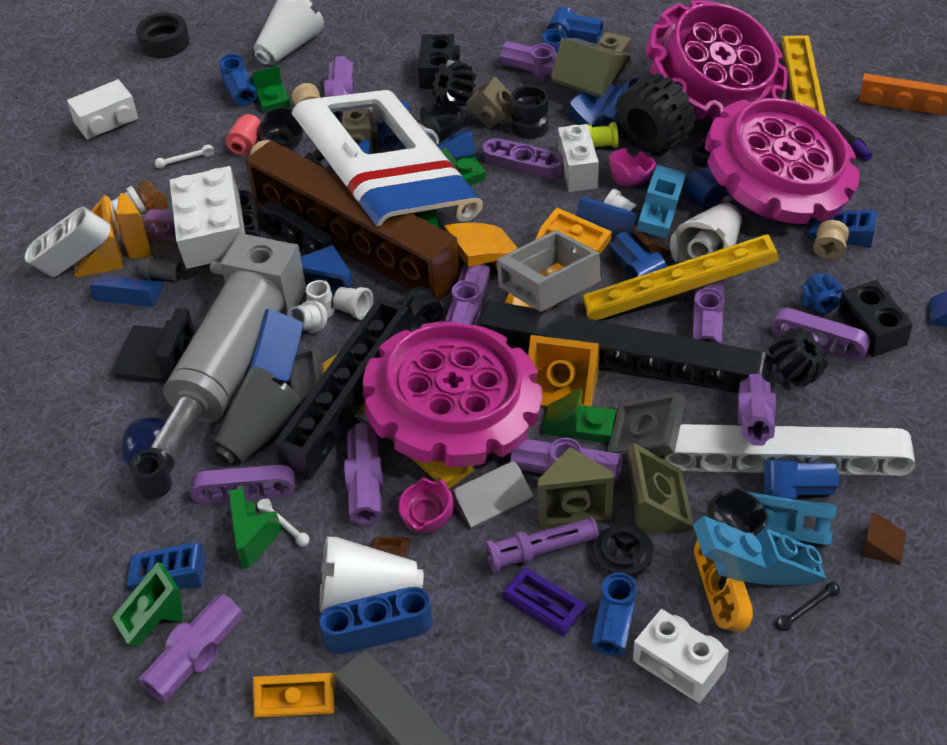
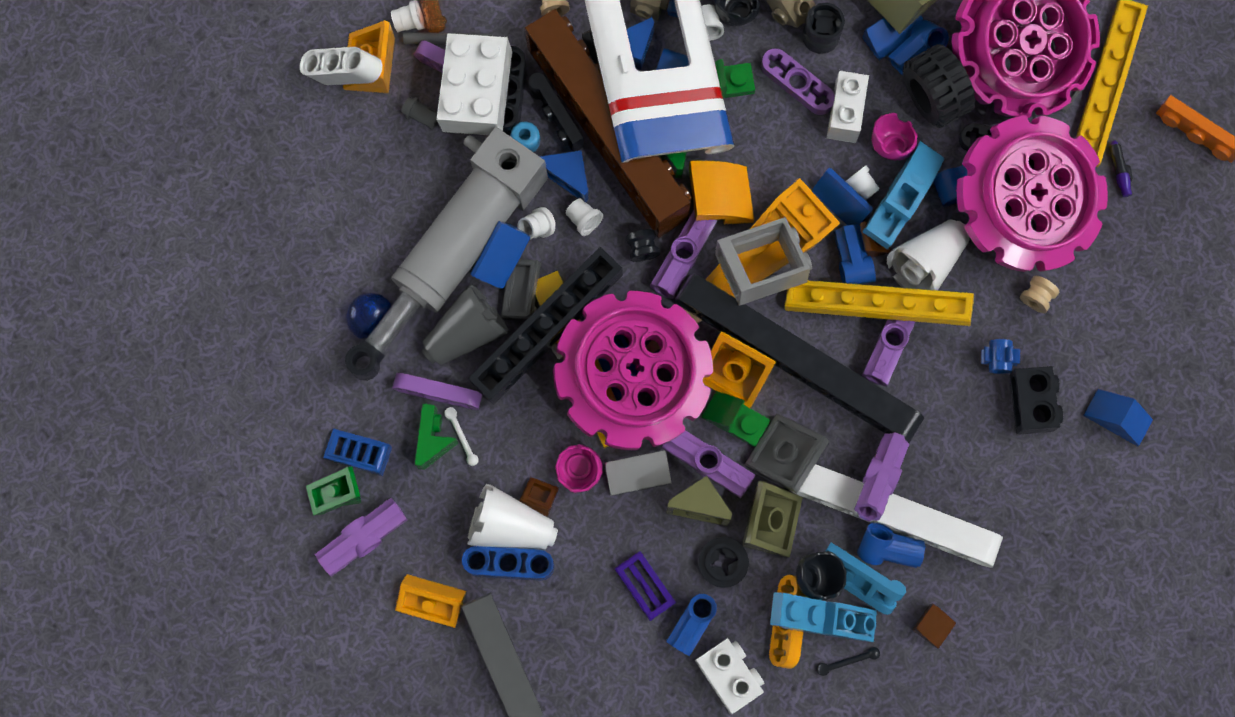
camera: 15 degrees right, 30 degrees up
(126, 290) = (386, 125): blue slope -> none
(132, 228) = (402, 64): light orange slope -> none
(155, 351) = (395, 214): black bracket -> none
(320, 292) = (557, 212): white piece -> none
(363, 475) = (537, 417): medium lavender piece -> none
(459, 145) = (734, 48): blue slope -> none
(524, 547) = (646, 533): medium lavender pin -> none
(604, 135) = (883, 81): neon yellow bush -> none
(798, 357) = (945, 424): black gear -> none
(832, 329) = (979, 400): medium lavender beam -> none
(859, 223) = (1075, 274): blue slope -> none

